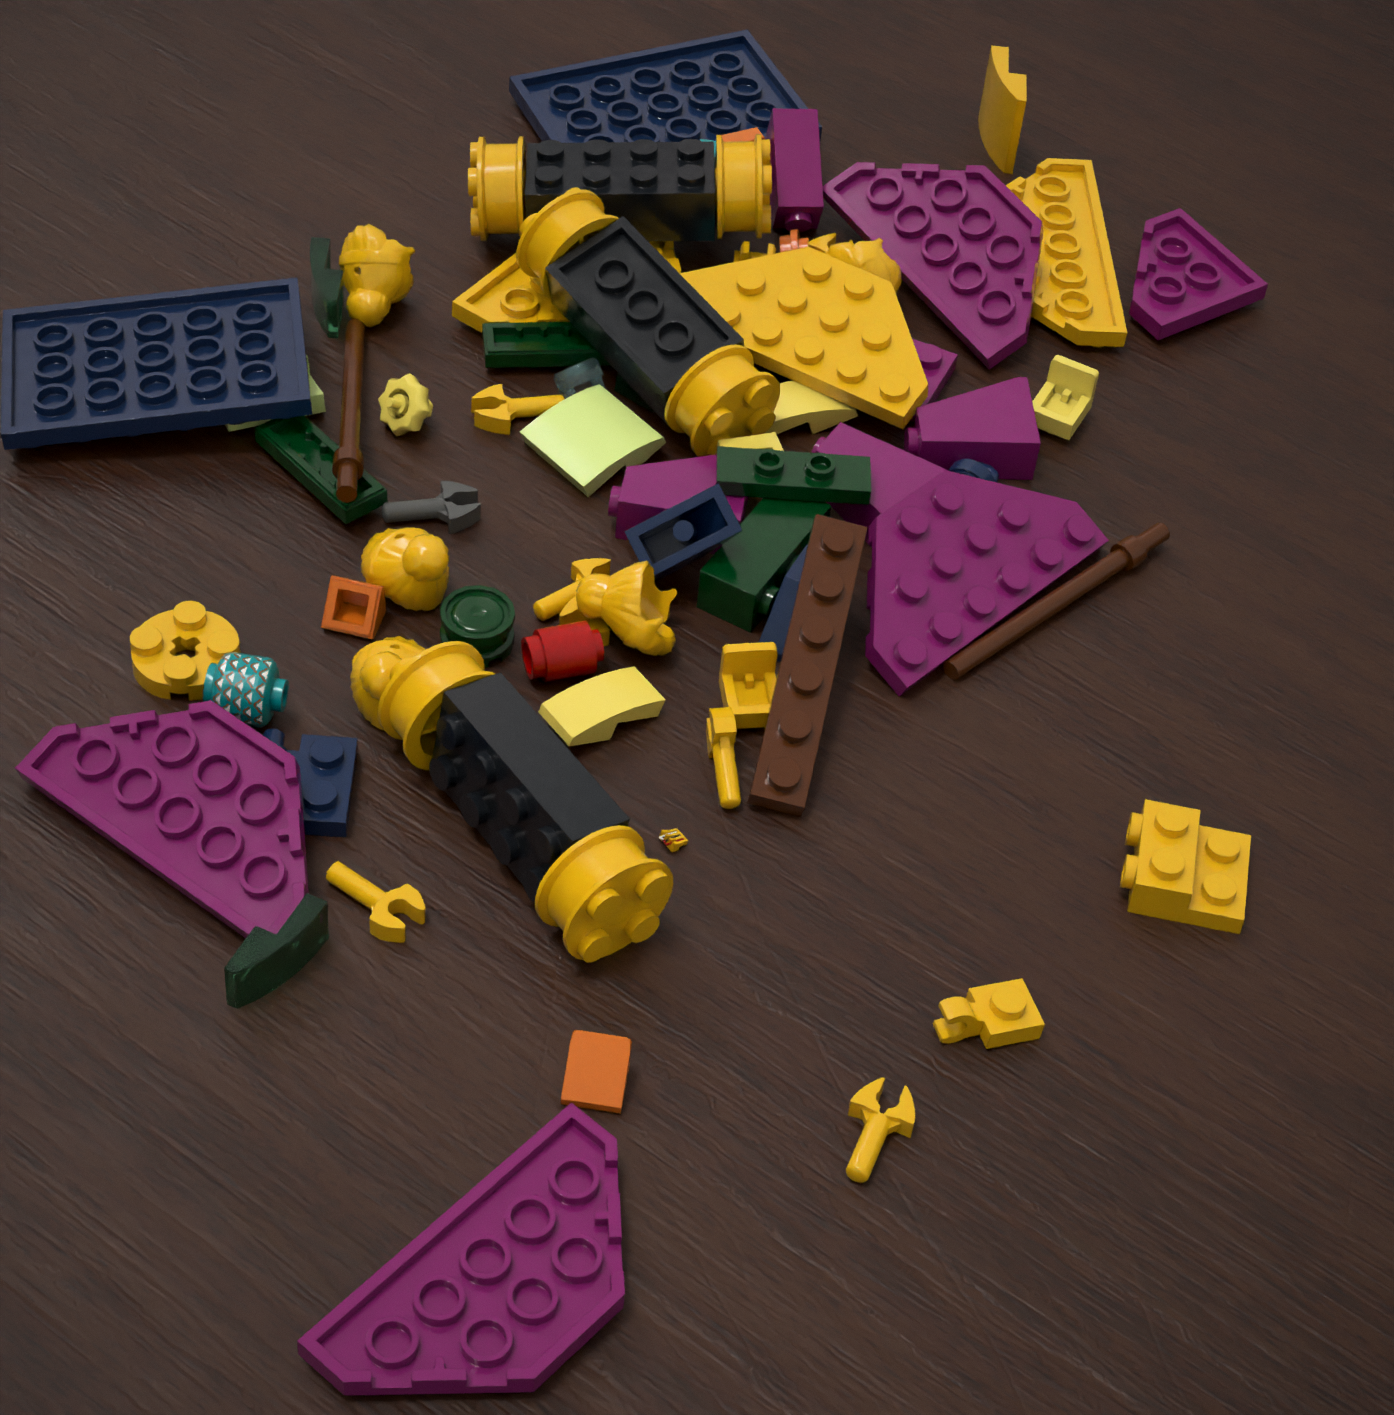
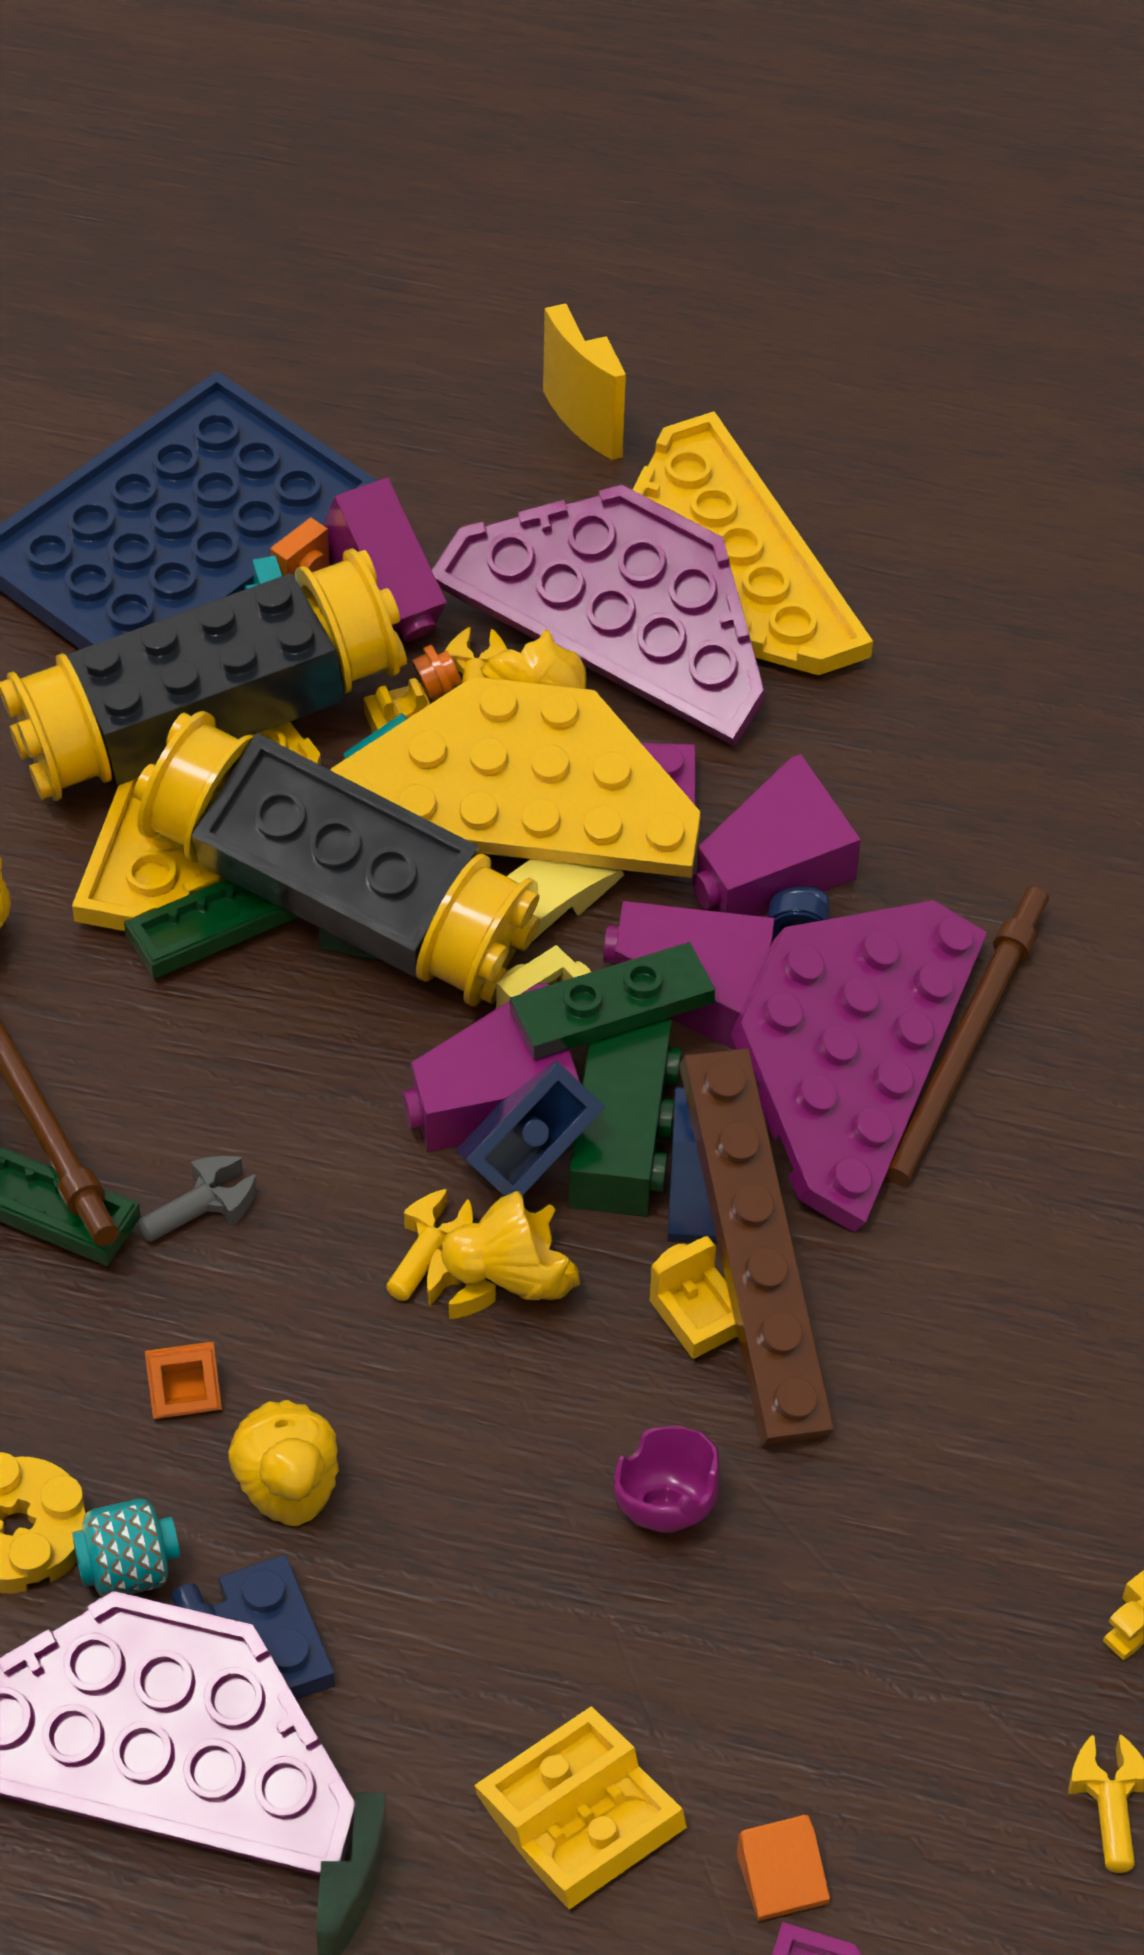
camera: 20 degrees left, 5 degrees up
(382, 904) = (424, 1756): yellow bar -> none
(404, 405) = (93, 1075): light yellow piece -> none
(409, 567) = (227, 1305): yellow piece -> none
(472, 977) = (580, 1807): none -> yellow slope
(480, 618) = (341, 1344): dark green wheel -> none
(495, 411) = (213, 1025): yellow bar -> none
(527, 798) = (535, 1559): brick -> none
(562, 651) = (459, 1339): red brick -> none
(577, 375) = (276, 951): clear light blue tile -> none
(591, 438) = (335, 1029): yellowish green slope -> none
(596, 706) = (538, 1390): light yellow slope -> none
(661, 793) = (668, 1479): none -> magenta hair
(673, 839) = (705, 1530): yellow piece -> none
(720, 744) = (697, 1378): yellow bar -> none
(1065, 397) = (848, 758): light yellow bracket -> none
(1187, 277) = (895, 533): magenta plate -> none

